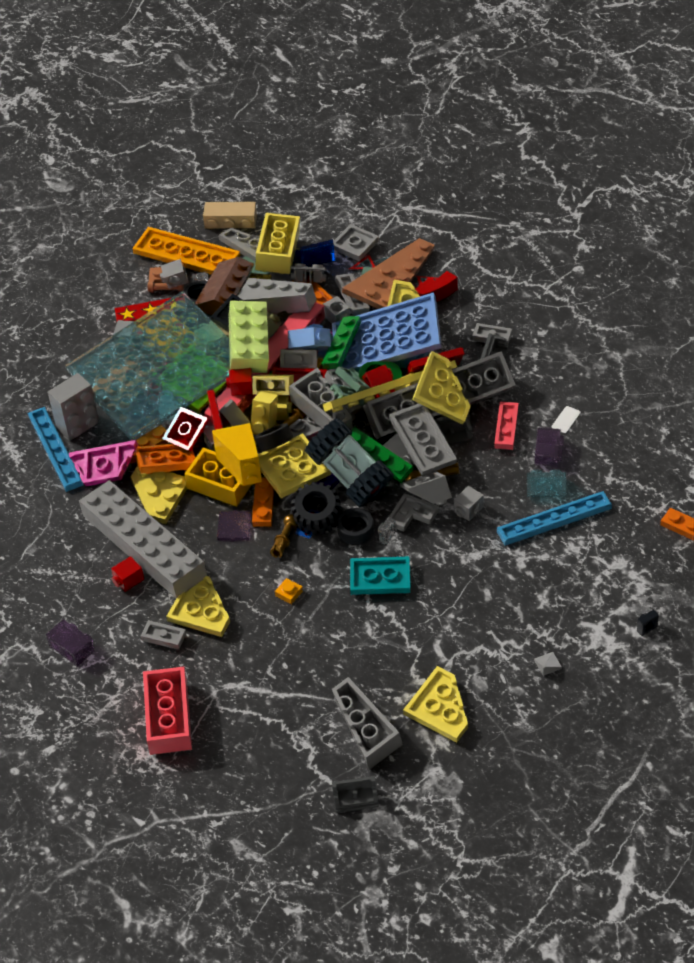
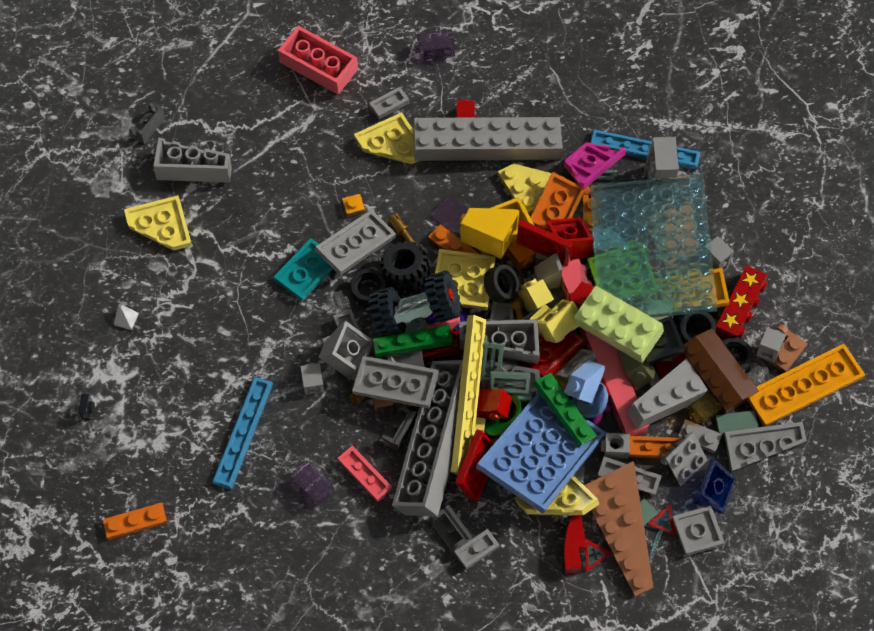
camera: 125 degrees right, 15 degrees up
(229, 215) = (825, 452): tan brick -> none
(277, 243) = (739, 449): light yellow brick -> none
(325, 555) = (355, 242): none -> light grey plate
(441, 390) = (425, 425): light yellow plate -> none
(546, 483) = (278, 451): clear light blue bracket -> none
(566, 419) = (332, 530): white sticker -> none

